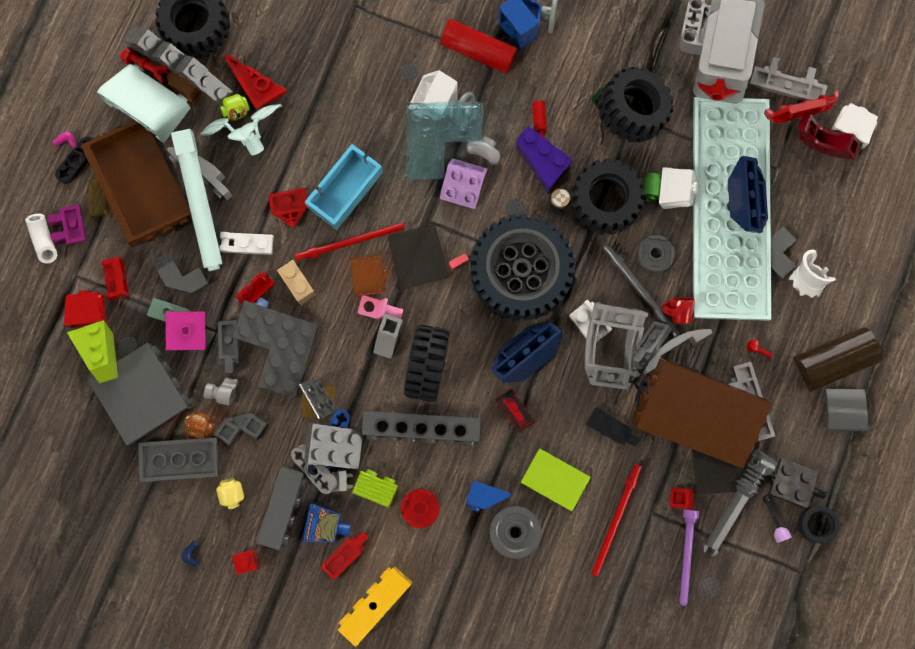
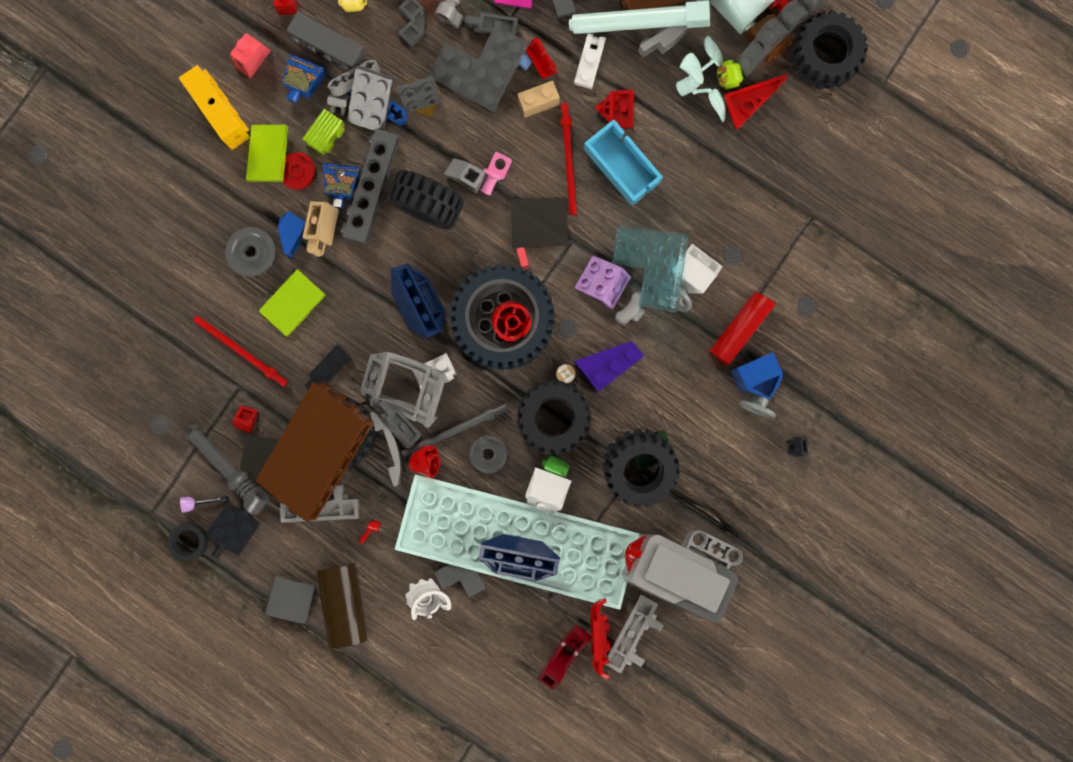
camera: 100 degrees right, 5 degrees up
(311, 585) = (249, 55): none -> coral torso
(344, 556) = (269, 91): red hinge -> none
(368, 275) = (530, 169): clear orange torso -> none
(409, 542) = (267, 153): none -> lime tile
(424, 458) = (340, 182): none -> torso
(474, 467) = (320, 227): none -> tan brick
(515, 410) = (366, 279): slope -> none
(526, 253) = (511, 321): none -> red cylinder
(539, 117) = (652, 372): red cylinder -> none
(690, 518) = (224, 421): medium lavender piece -> none
(856, 121) = (573, 691): white torso -> none

